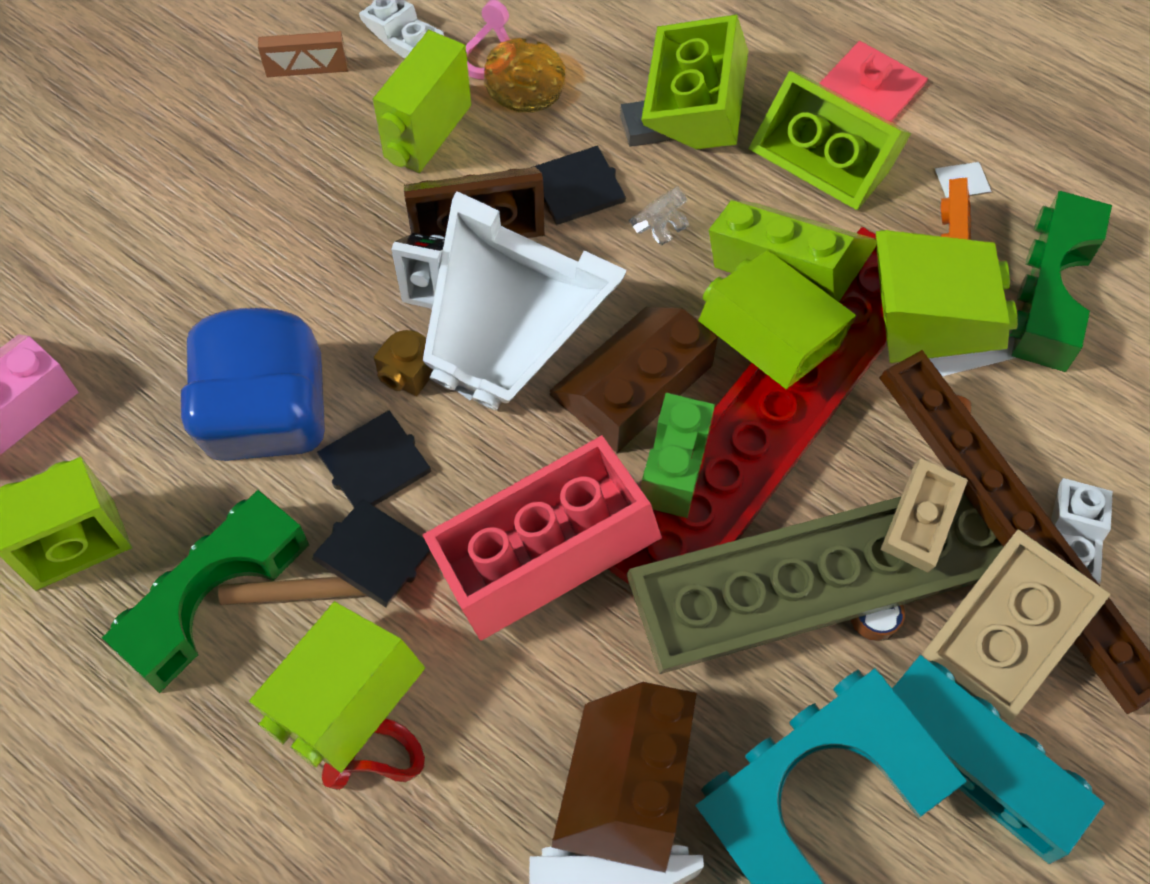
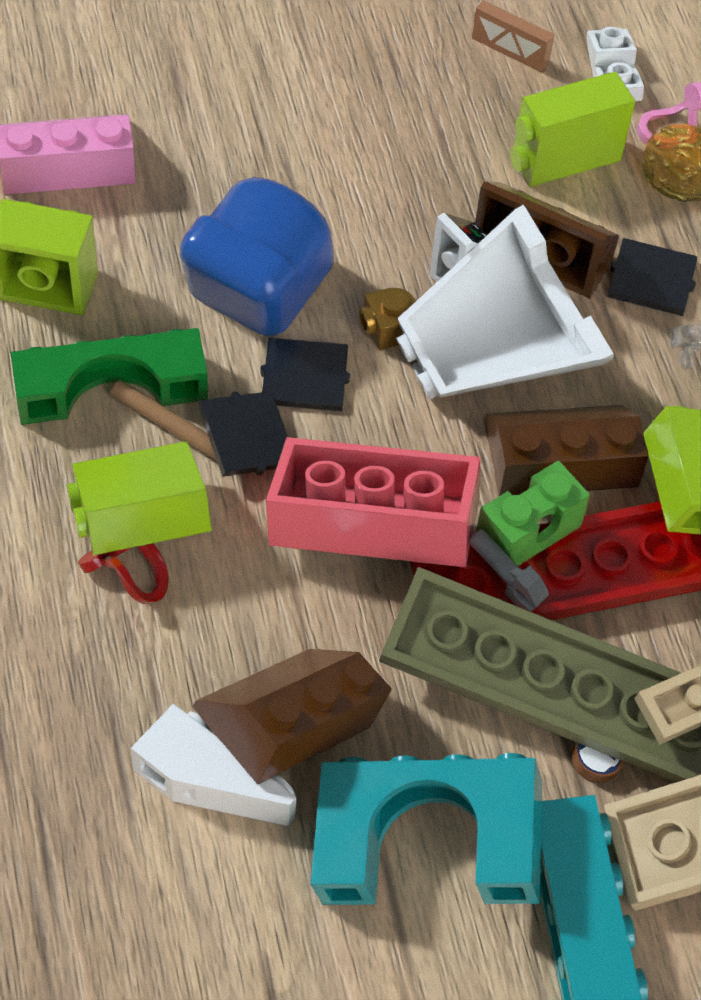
camera: 35 degrees right, 5 degrees down
(717, 521) = (523, 587): none -> dark grey bar

